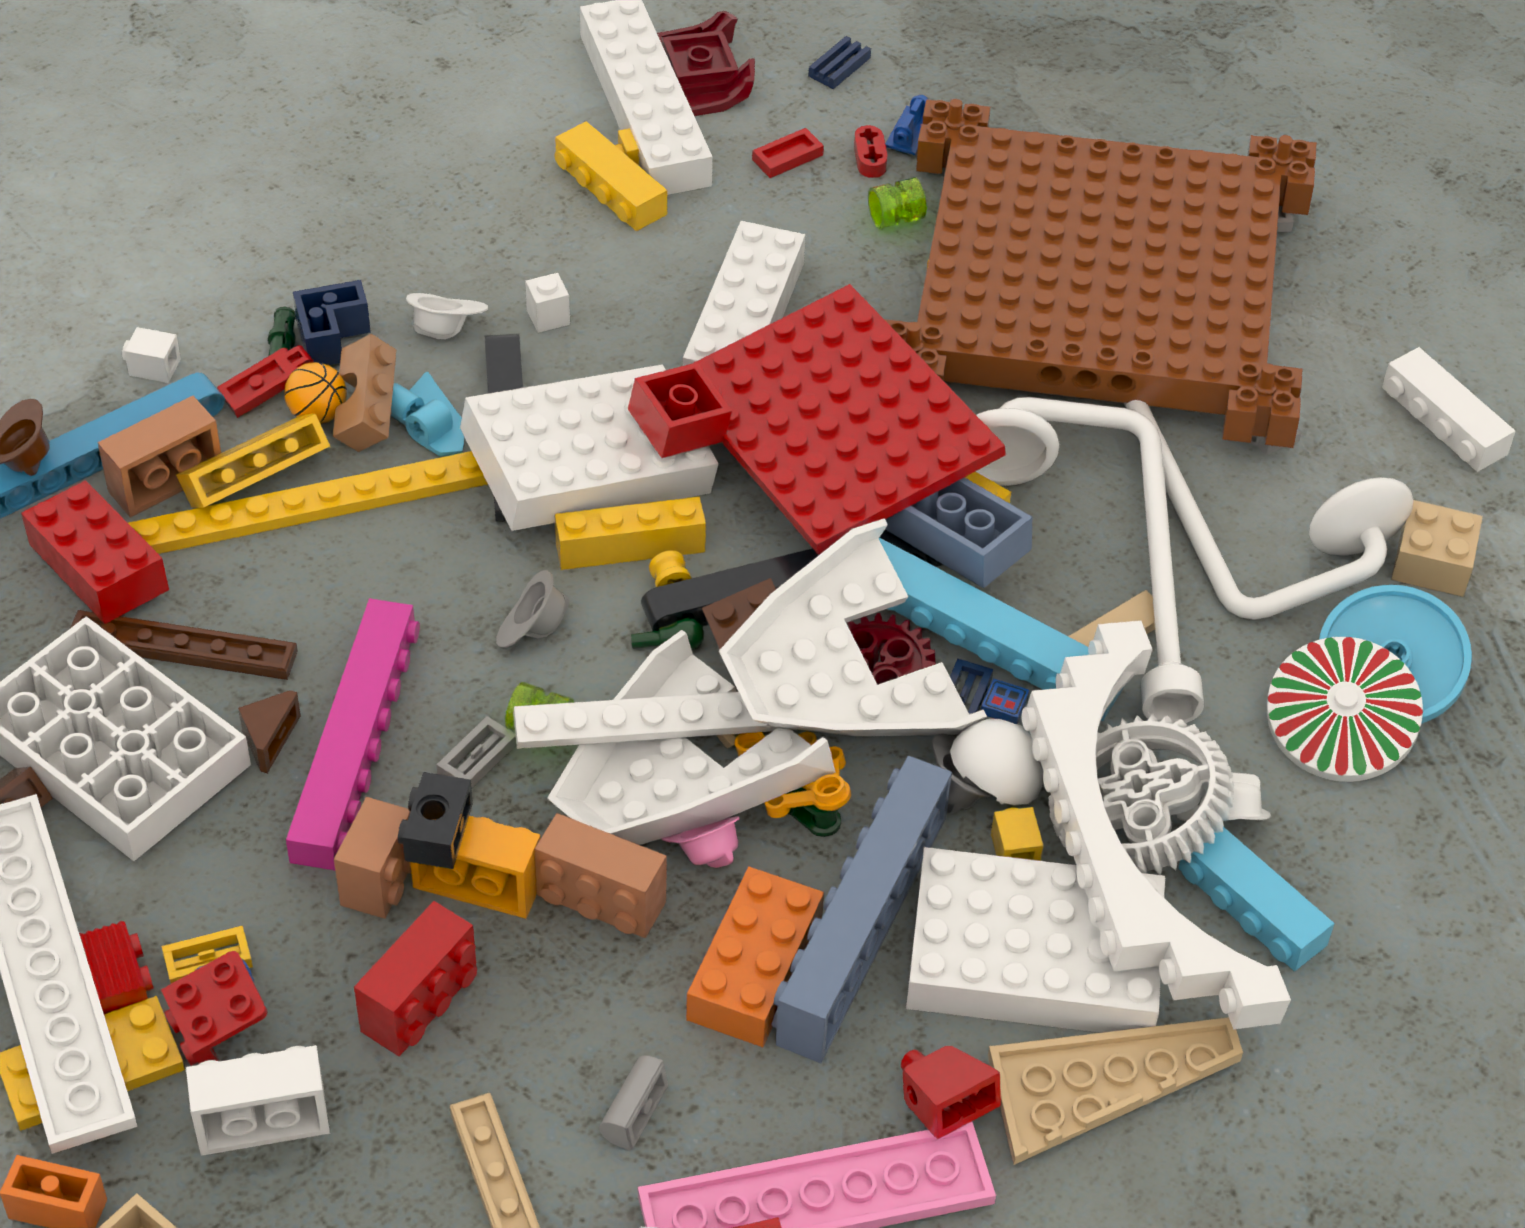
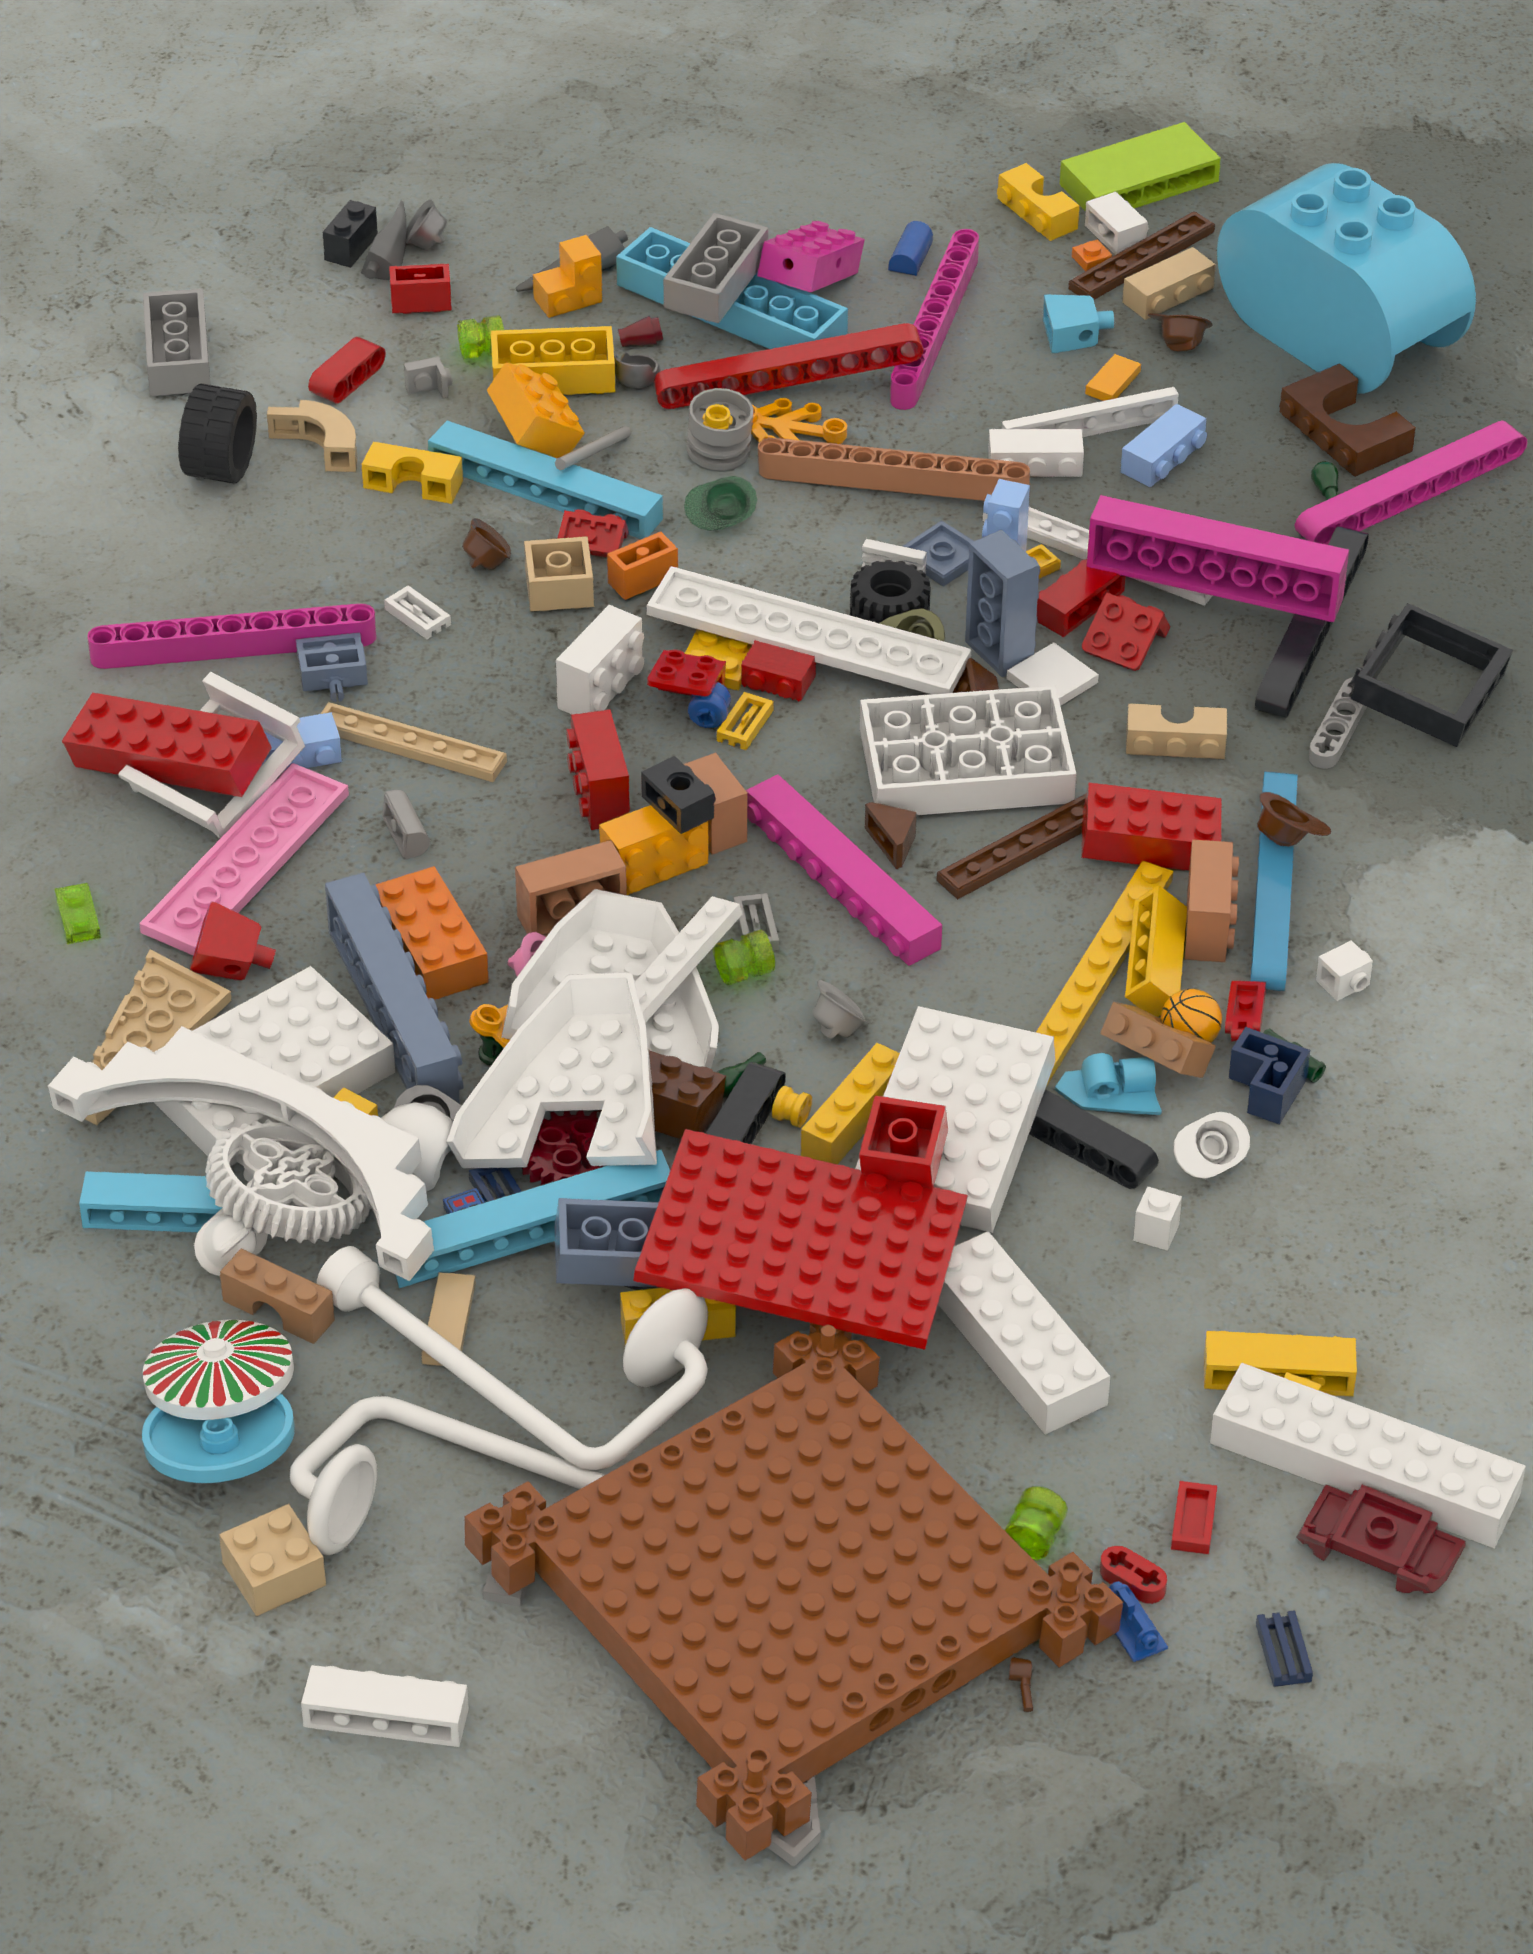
camera: 135 degrees right, 5 degrees down
(1233, 715) = (302, 1304): none -> medium nougat arch

